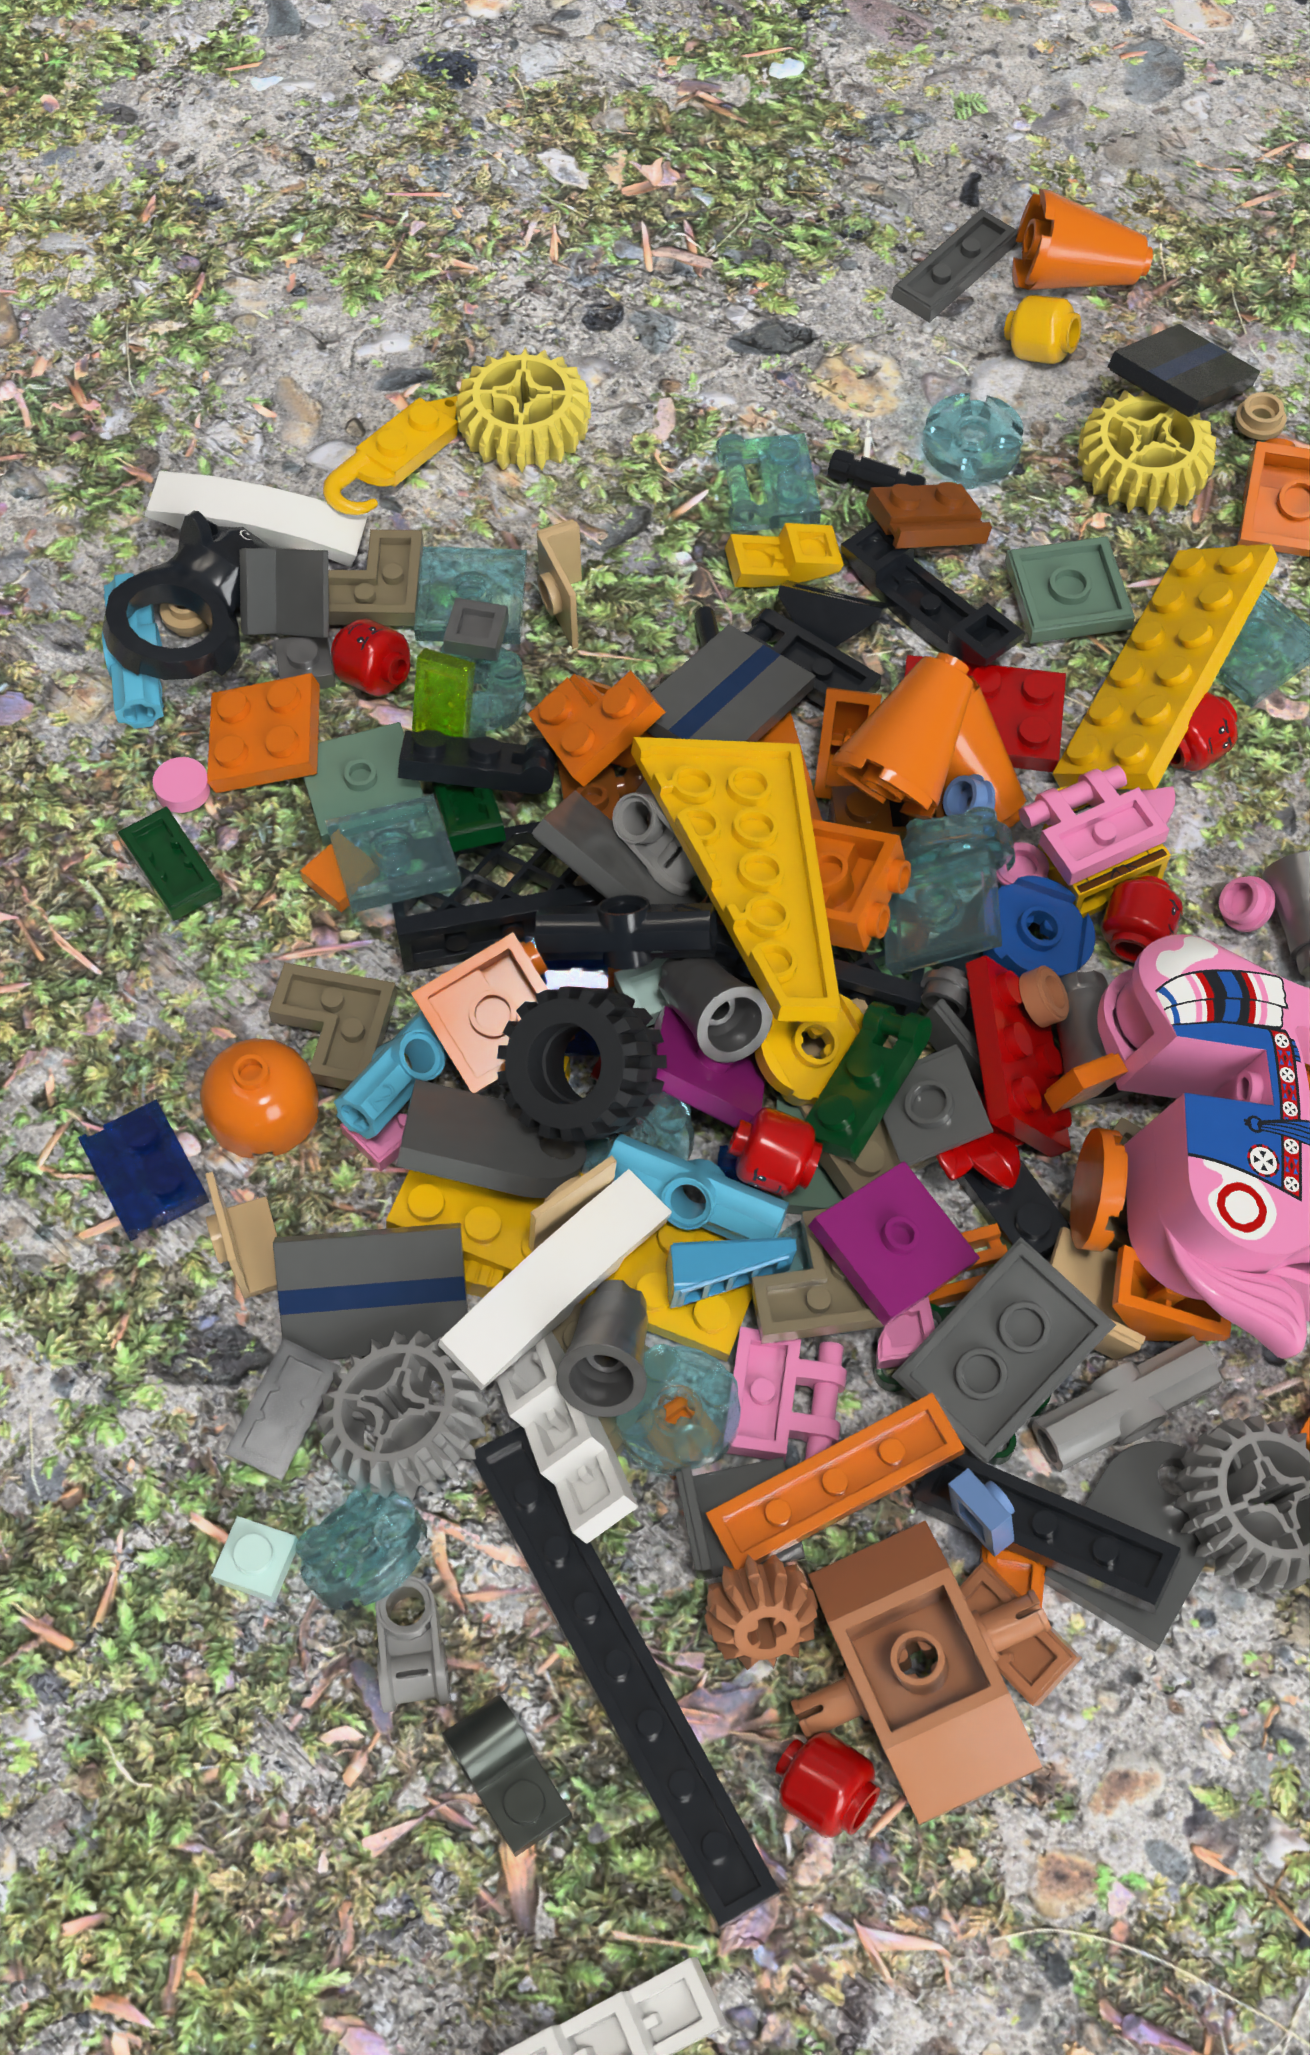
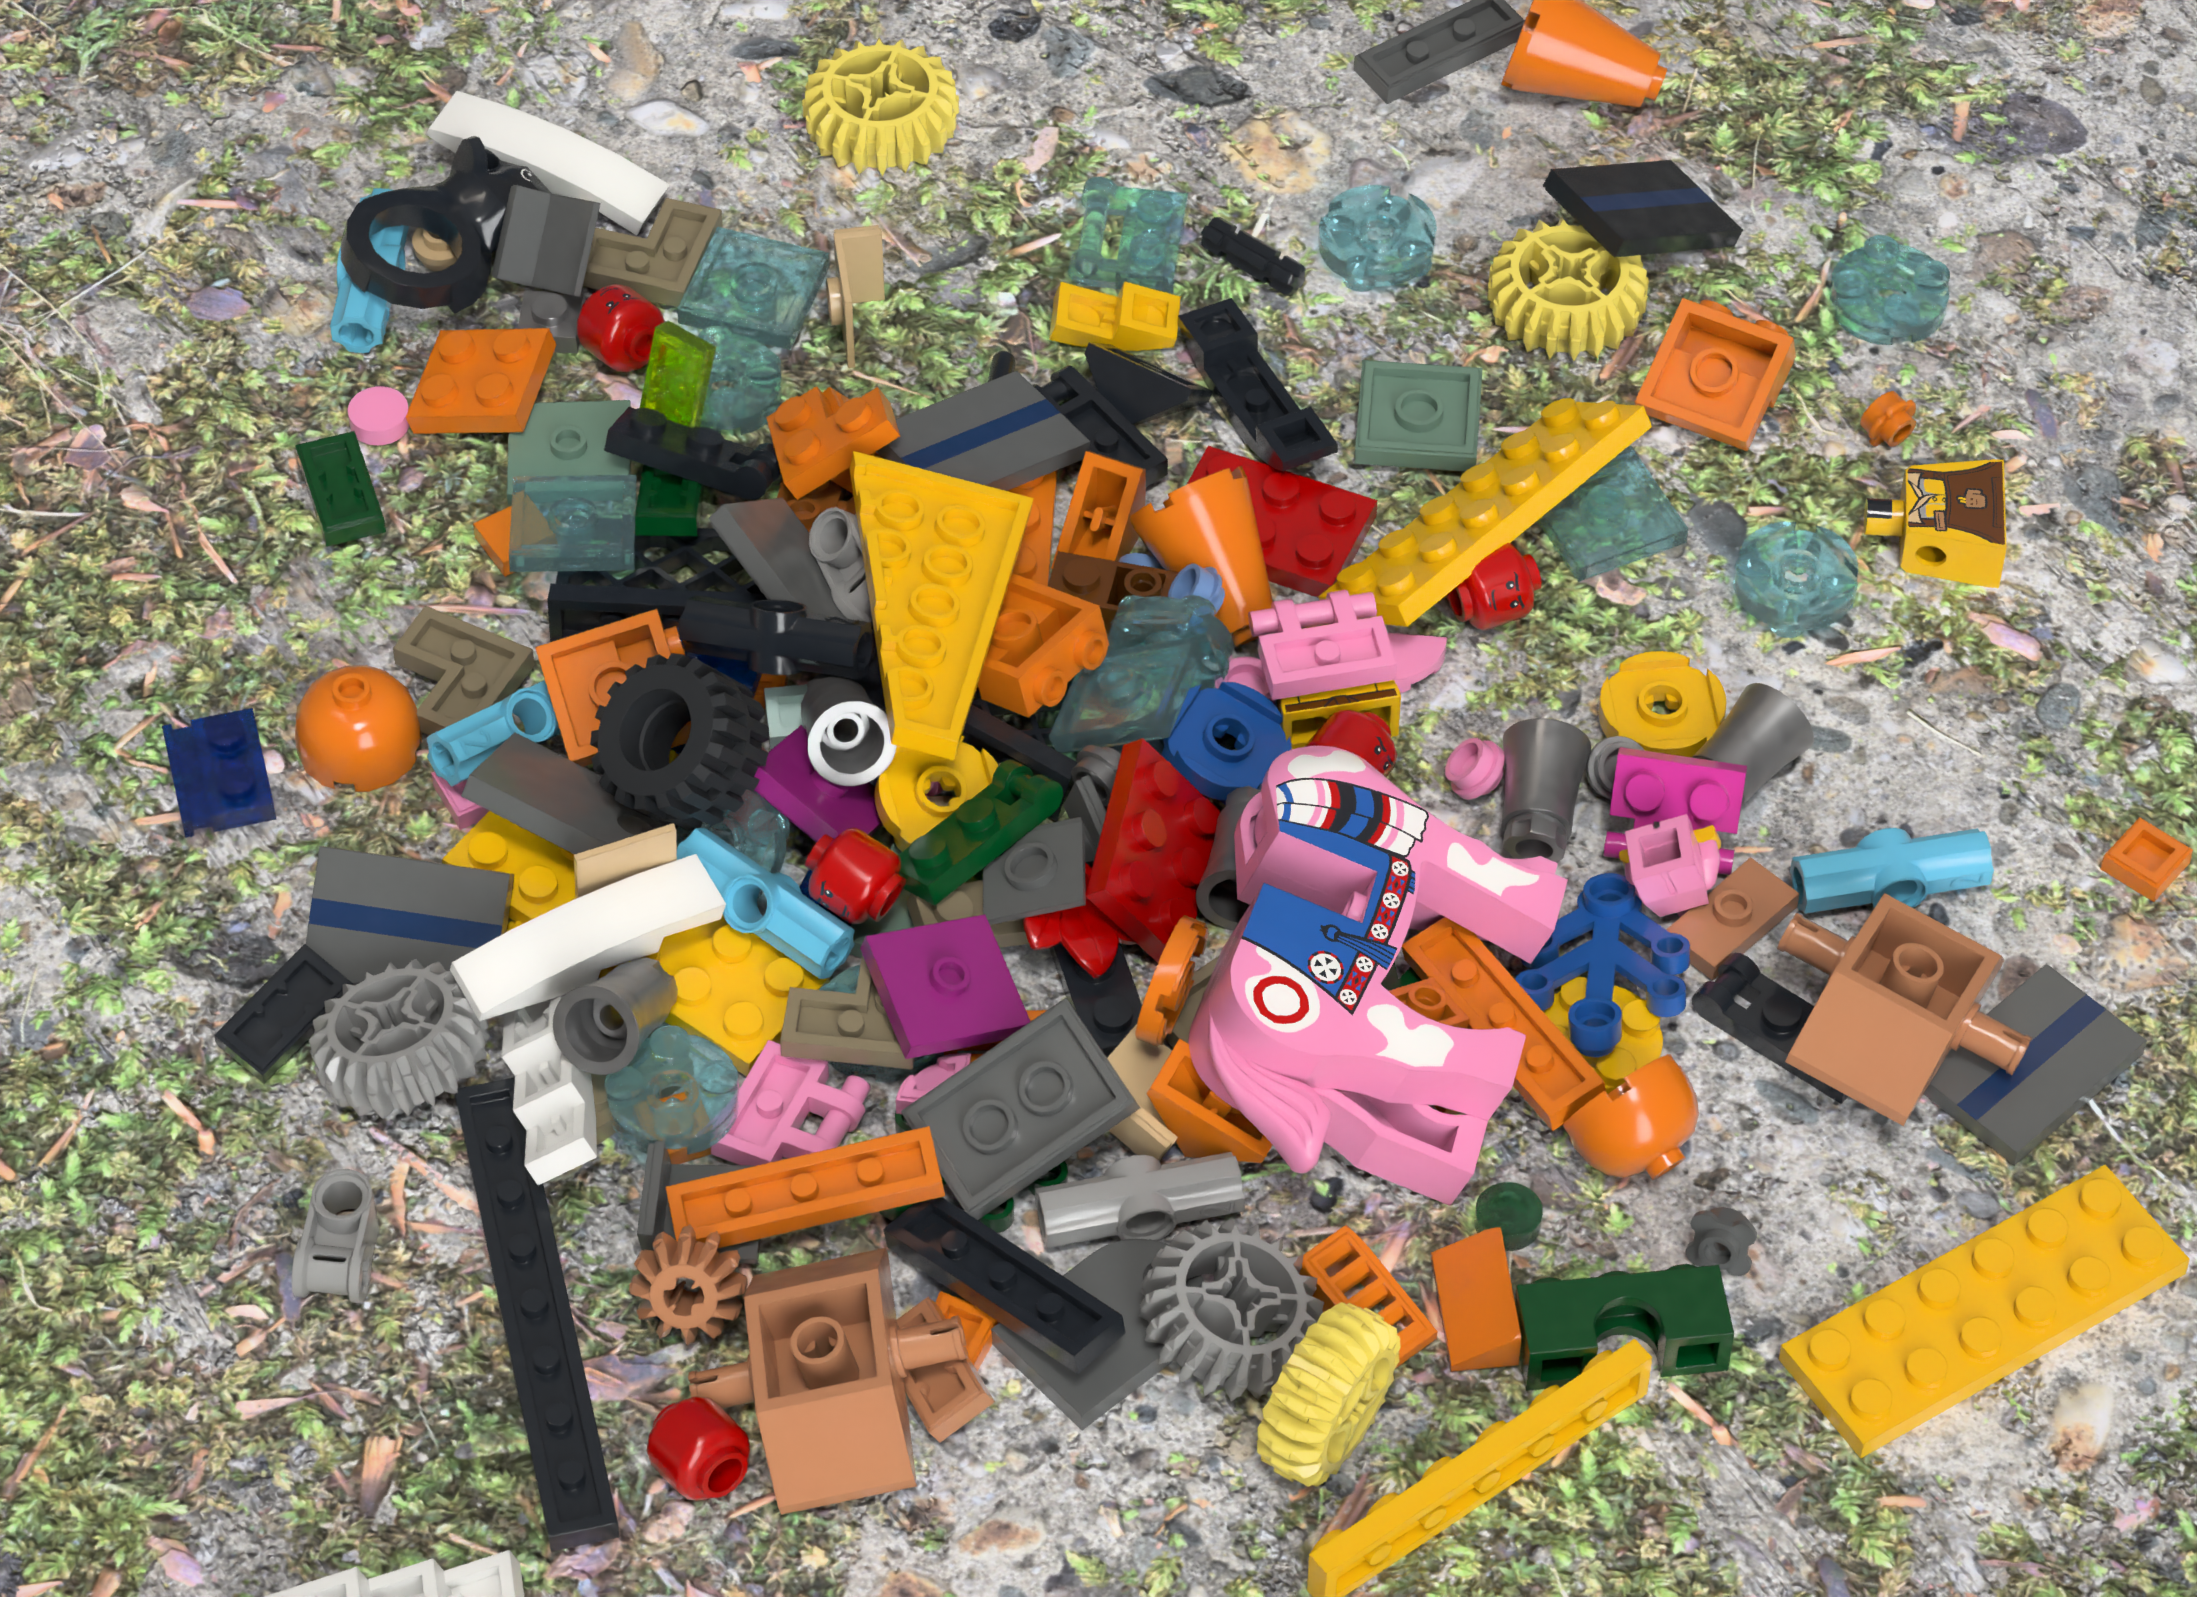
camera: 15 degrees right, 10 degrees down
(245, 1240) = (292, 850): tan piece -> none
(255, 1559) = (214, 1140): light aqua plate -> none
(332, 1554) = (317, 1142): clear light blue plate -> none
(394, 451) = (721, 122): yellow plate -> none
(476, 629) = (739, 319): flat silver plate -> none
(507, 1775) = (392, 1371): pearl dark grey plate -> none
(719, 1266) = (762, 970): dark azure slope -> none
(910, 737) = (1135, 504): orange cone -> none
(928, 515) = (1288, 305): dark orange plate -> none
(983, 1510) = (938, 1239): medium blue plate -> none
(1043, 329) = (1505, 135): yellow head -> none
(1044, 996) = (1200, 799): nougat tile -> none
(1085, 1082) = (1202, 882): orange tile -> none
(1261, 416) = (1722, 278): tan plate -> none

